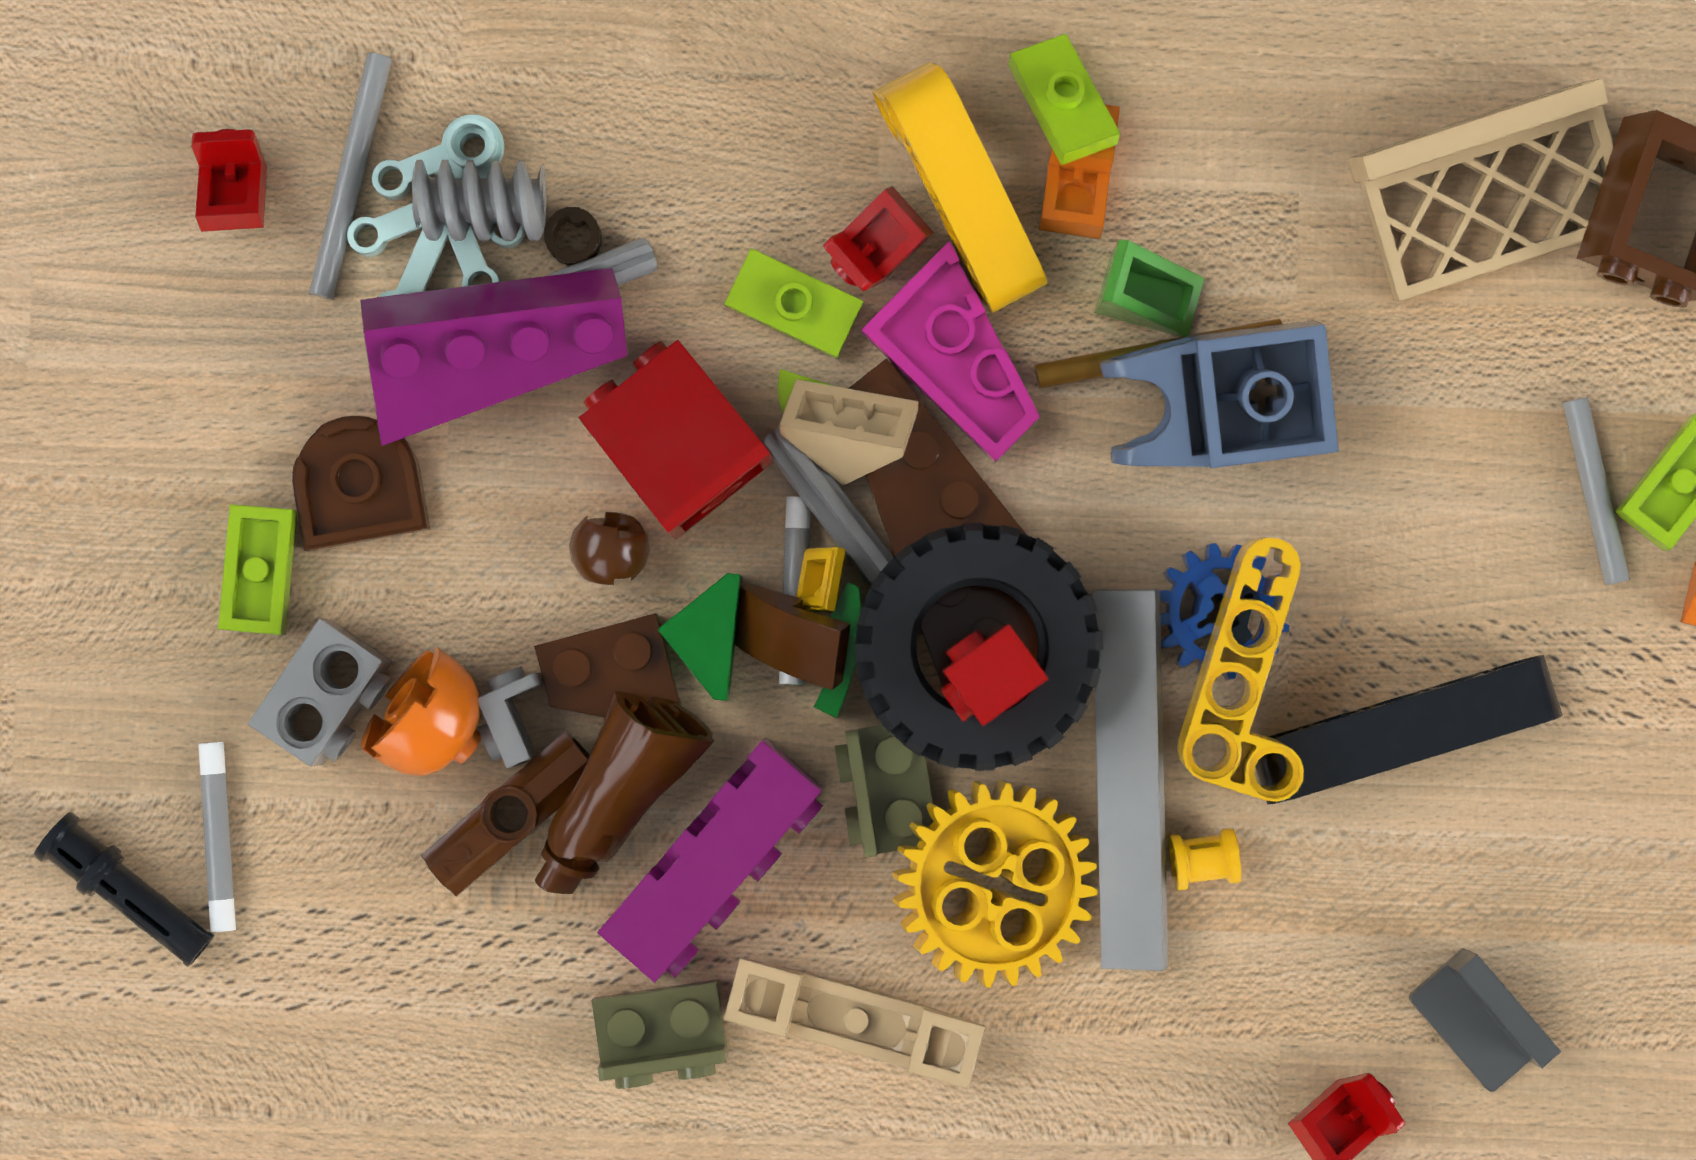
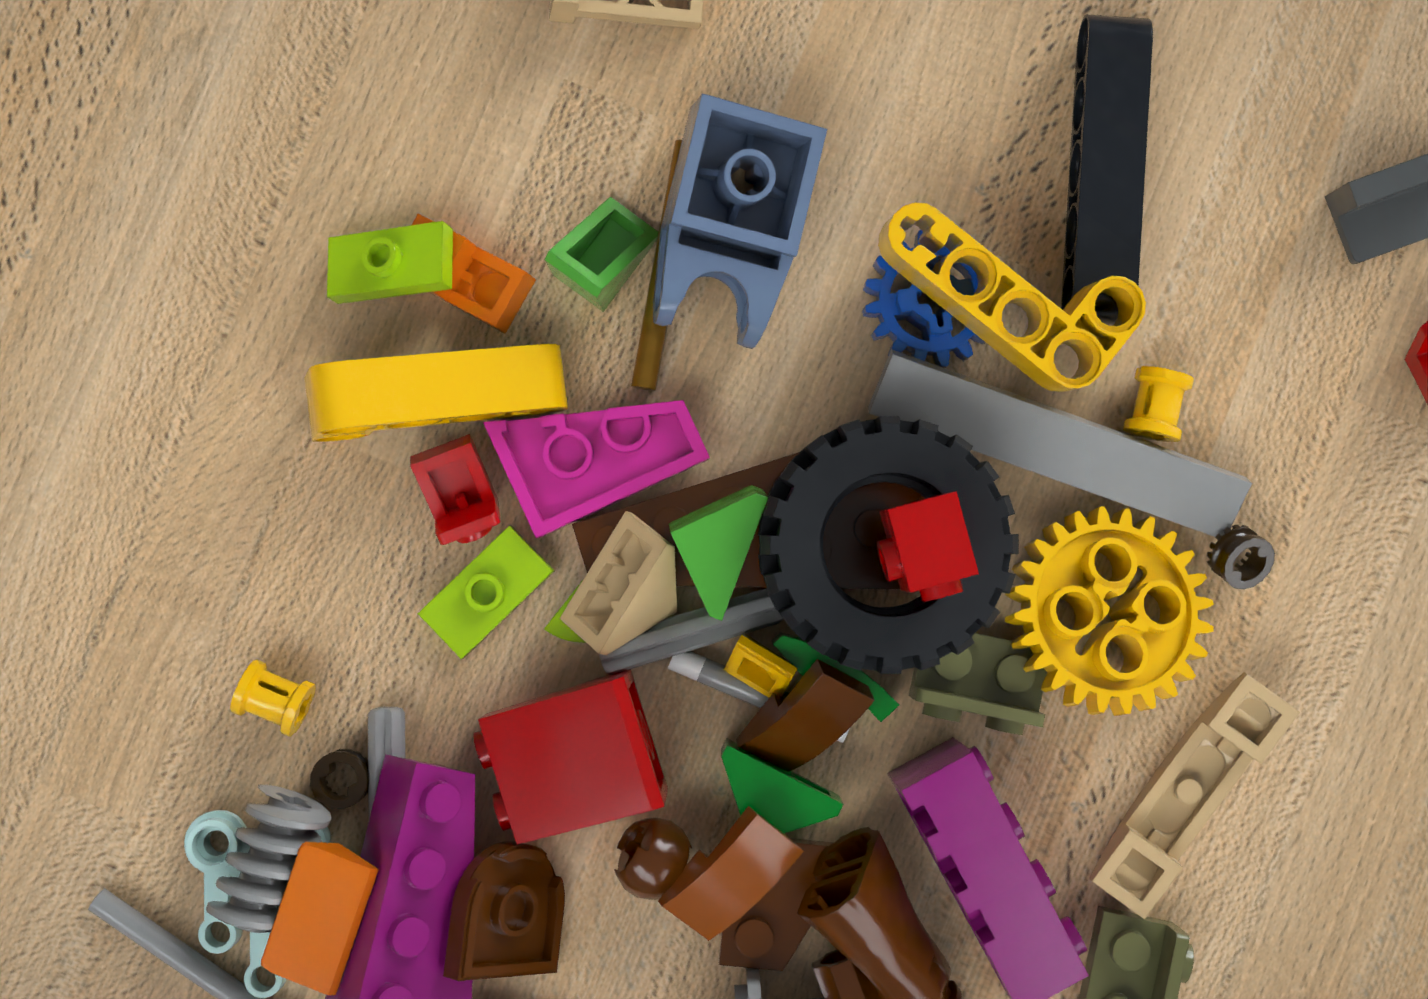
camera: 70 degrees left, 0 degrees up
(450, 264) = (319, 916): none -> orange slope
(510, 433) = (505, 915): none -> reddish brown tile
(623, 623) = (733, 878): none -> dark orange slope
(624, 145) = (272, 697): none -> yellow bush
(919, 493) = (717, 542): none -> bright green slope
(1093, 971) = (1228, 549): none -> dark brown bush

